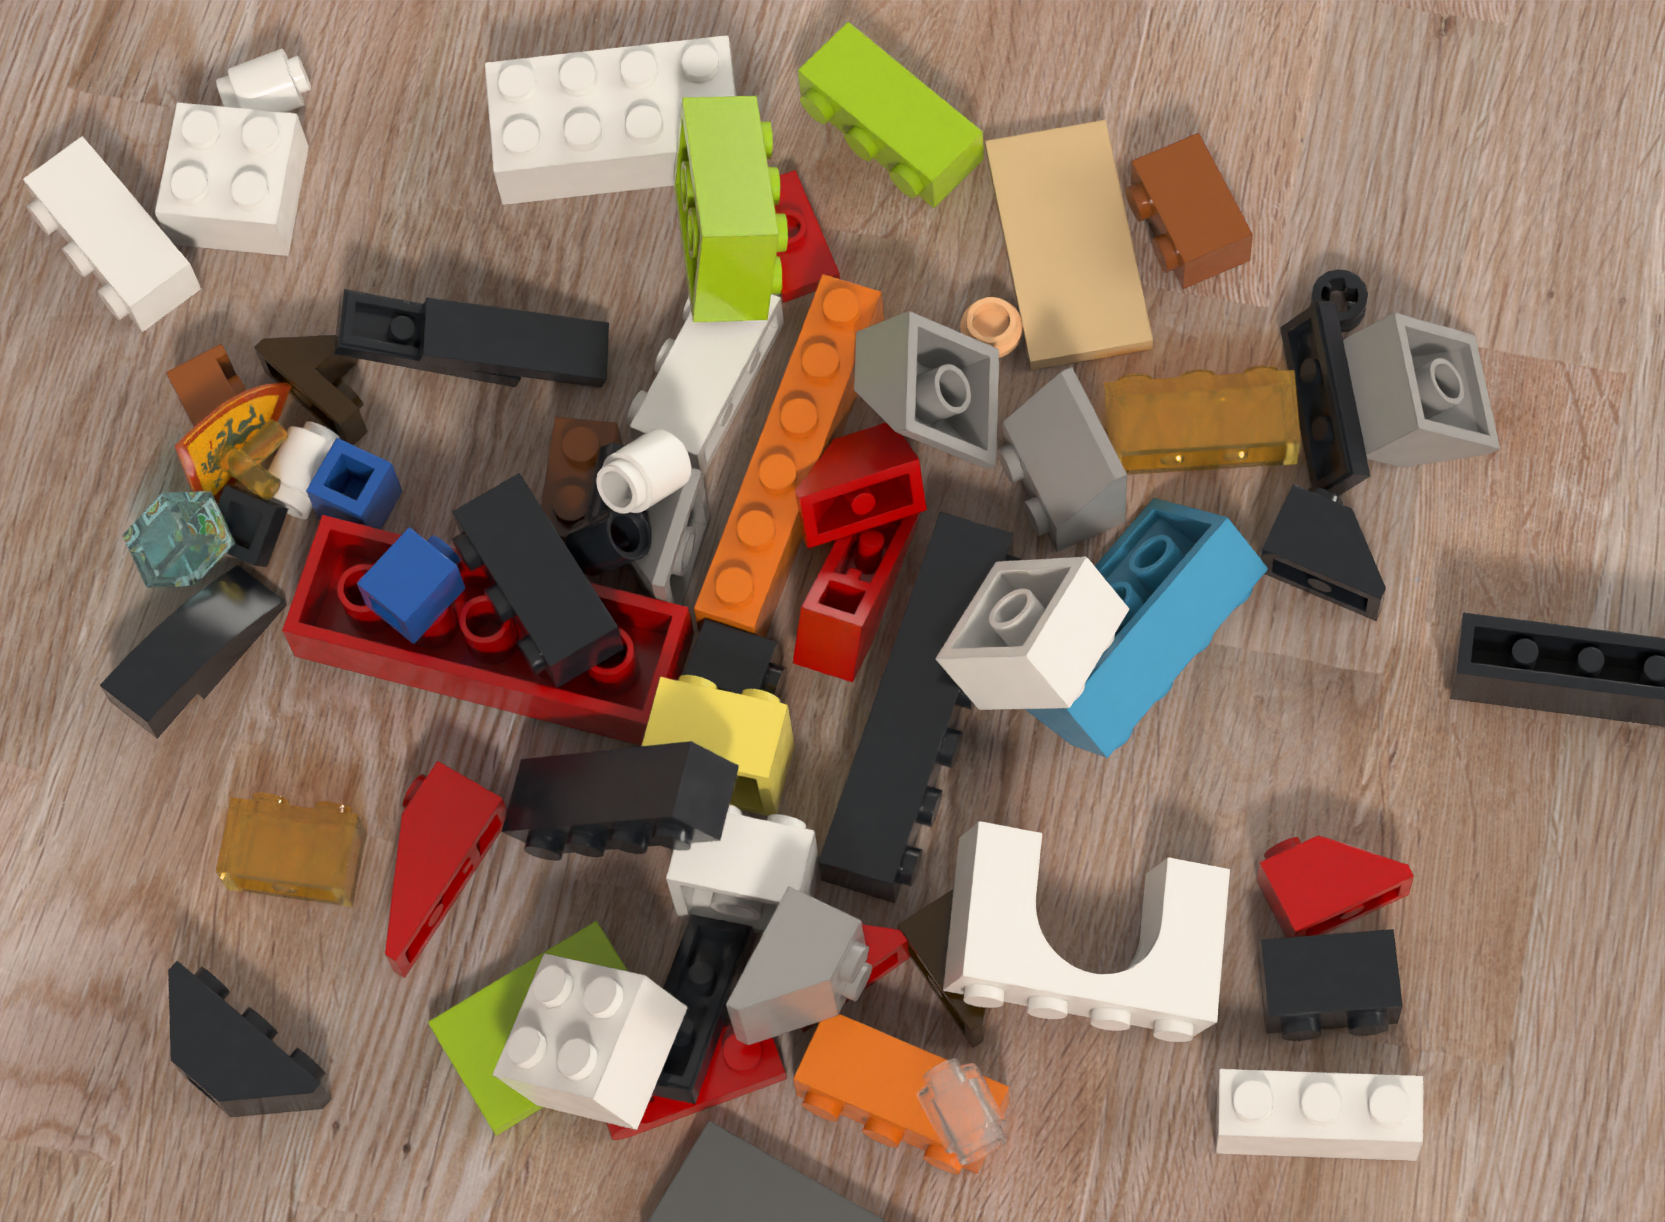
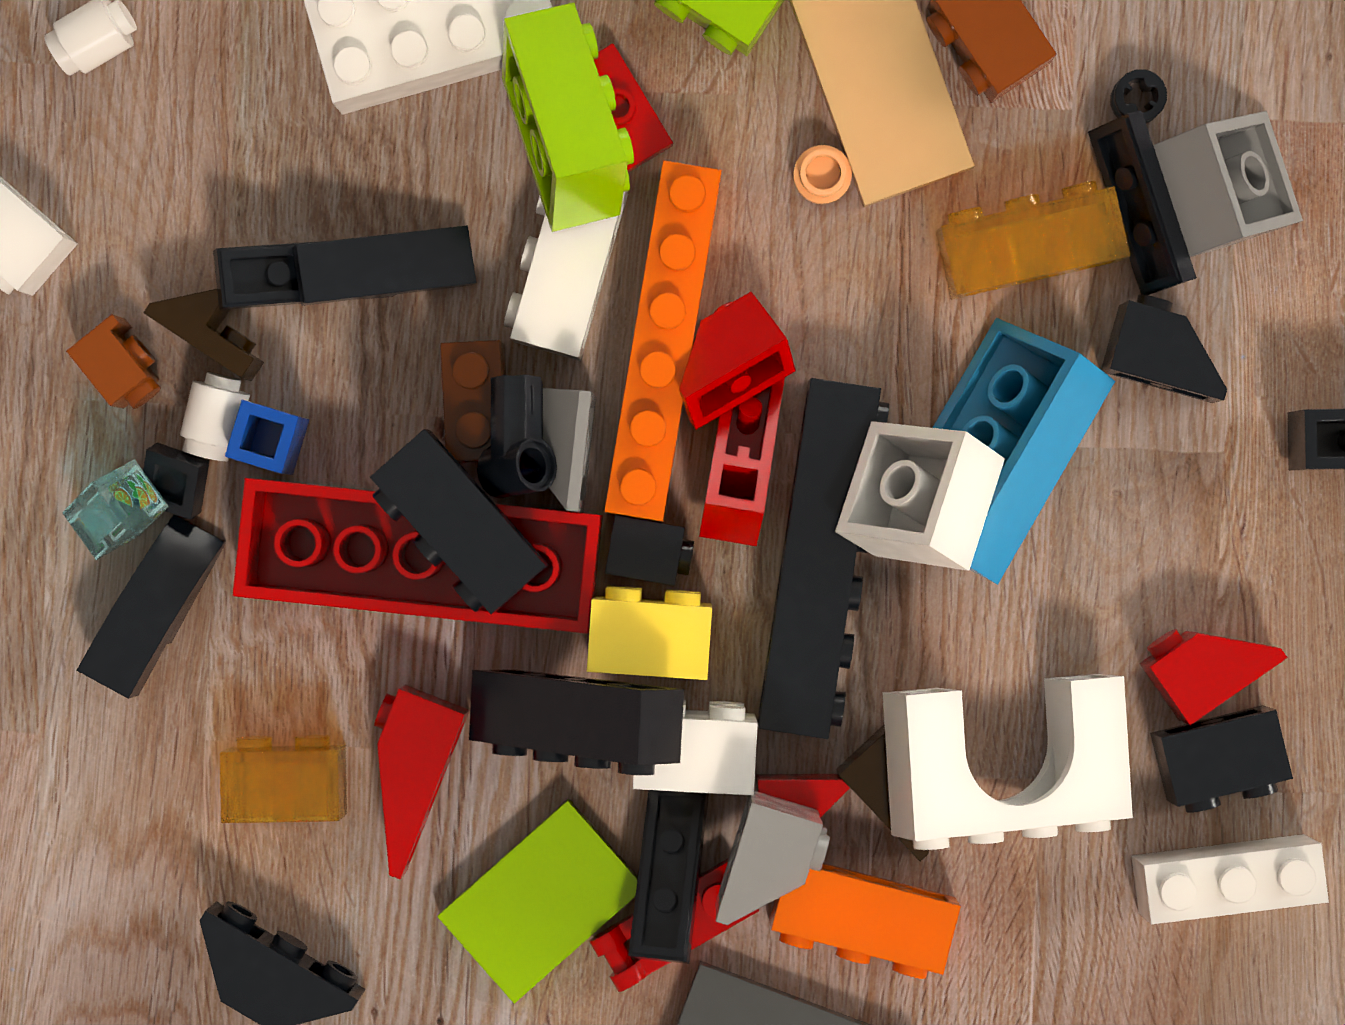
camera: 20 degrees left, 20 degrees up
(232, 179) = (82, 136): white brick -> none
(235, 442) = (151, 413): clear yellow shield -> none
(413, 583) = (345, 542): blue brick -> none
(590, 1041) = (589, 935): white brick -> none
(644, 472) = (541, 411): white brick -> none
(931, 385) = (783, 263): light grey slope -> none
(962, 1110) = (928, 946): clear brick -> none
(1064, 463) = (914, 309): light grey slope -> none

